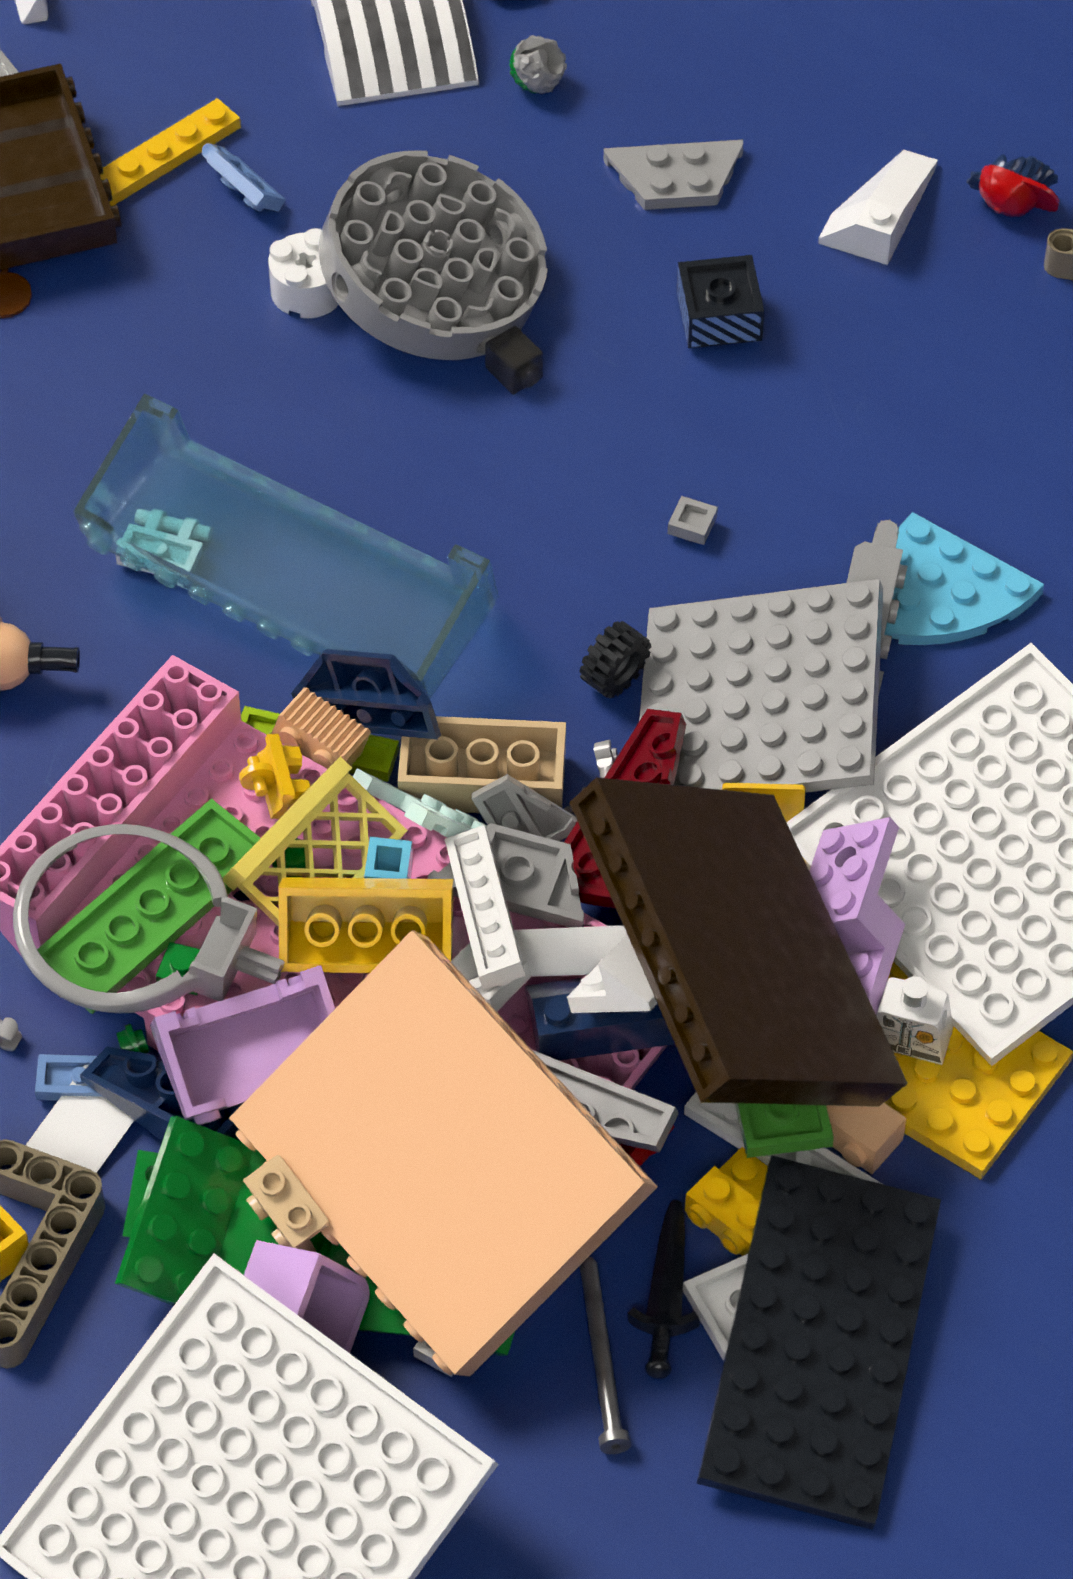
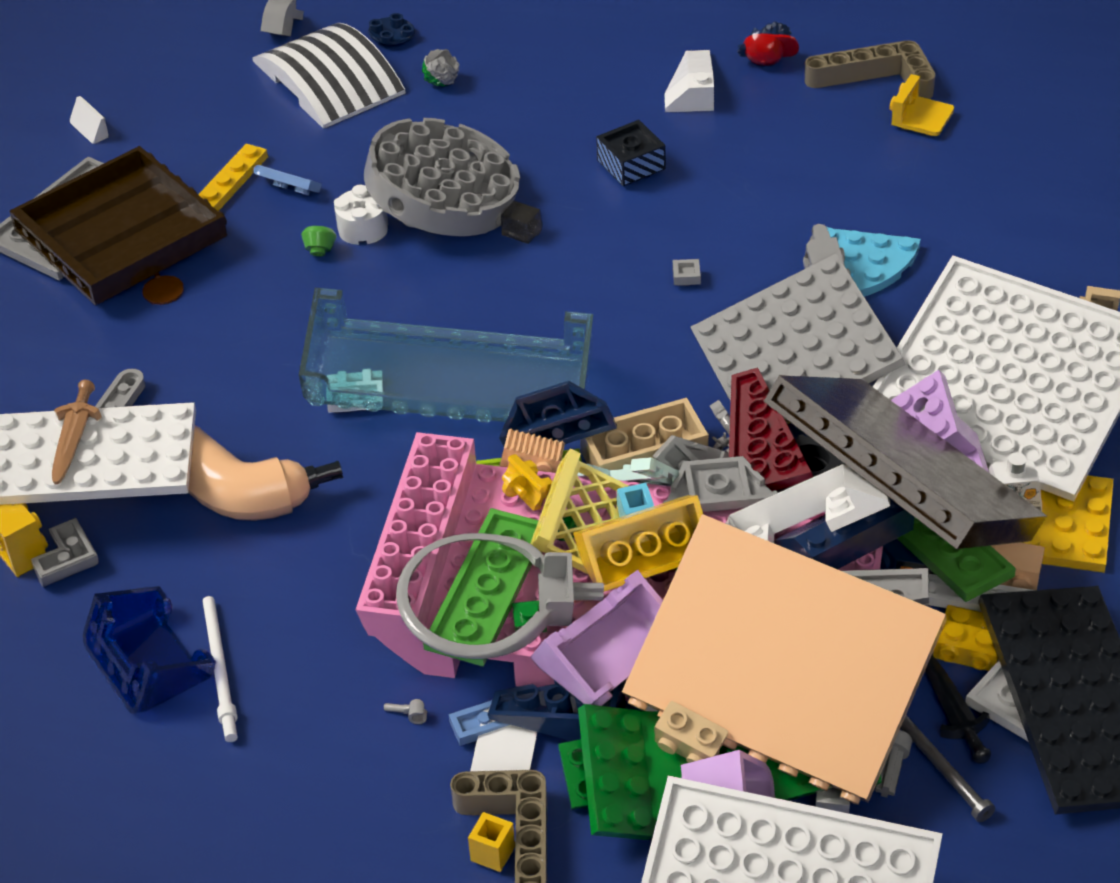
camera: 20 degrees left, 10 degrees down
(132, 1040) = (507, 681): green plate -> none
(232, 293) = (318, 240): none -> bright green cone
(484, 908) = (727, 498): white plate -> none
(553, 1316) = (892, 767): none -> light grey piece
(615, 659) = (691, 357): black tyre -> none
(676, 172) = (556, 101): light grey wing -> none

